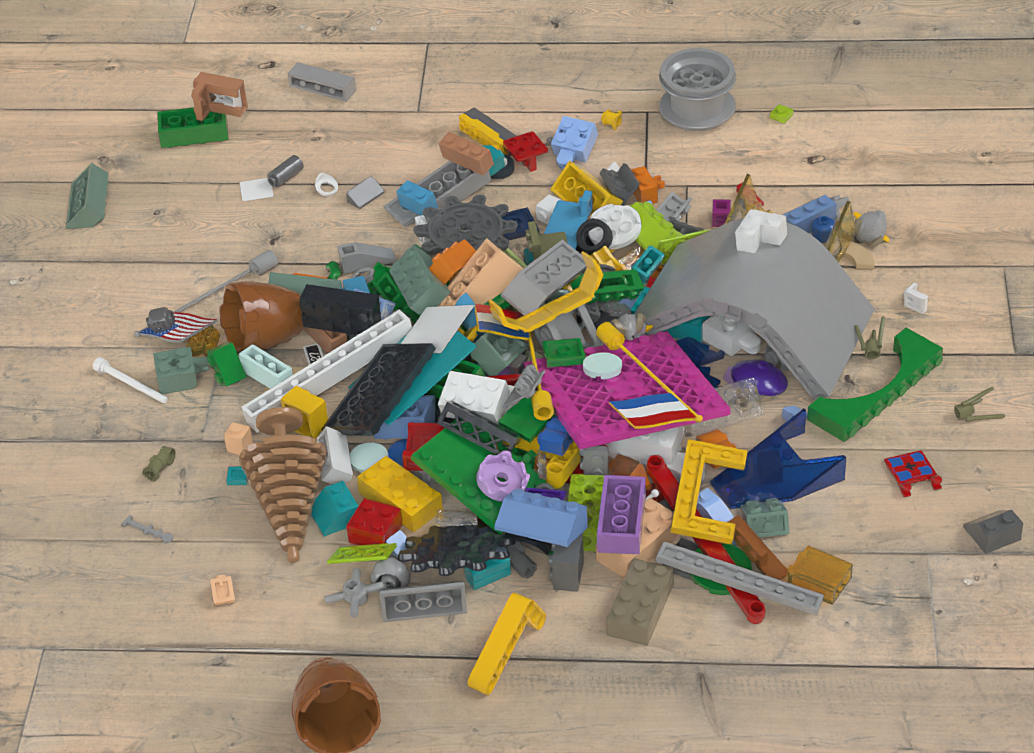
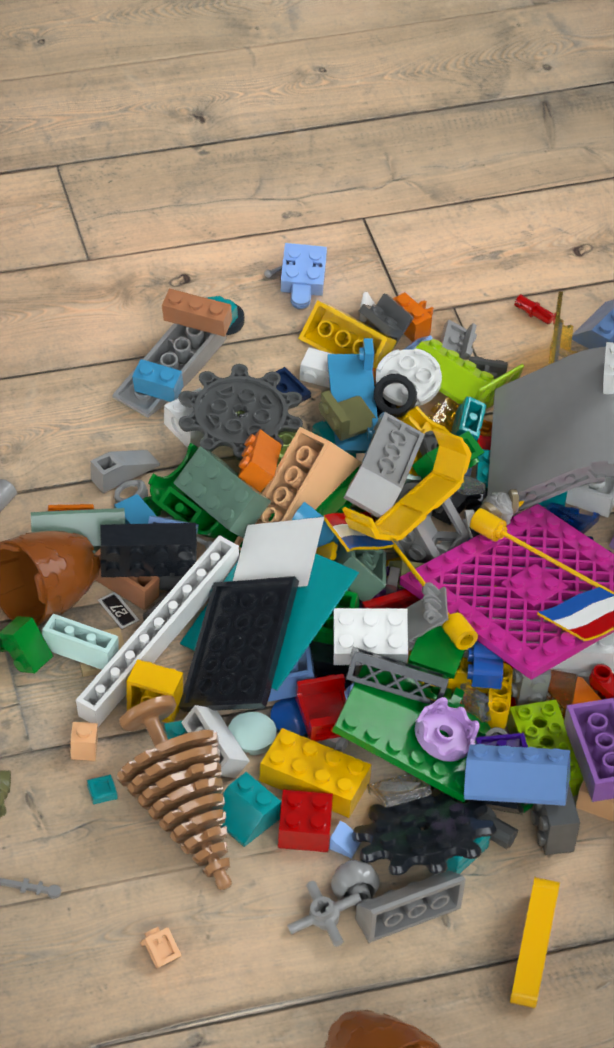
camera: 25 degrees left, 5 degrees up
(326, 178) = (19, 369): white piece -> none
(334, 269) = (91, 490): green arm -> none
(364, 192) = (78, 381): slope -> none
(381, 552) = (319, 850): lime window -> none
(484, 129) = (192, 274): yellow piece -> none
(526, 148) = (253, 291): red bracket -> none
(563, 352) = (443, 556): green tile -> none
(602, 365) = (499, 564): light aqua tile -> none
(612, 119) = (330, 234): yellow brick -> none
(697, 89) = (424, 183): light grey wheel -> none
(720, 211) = (514, 336): magenta brick -> none
(781, 113) = (519, 197): lime plate -> none

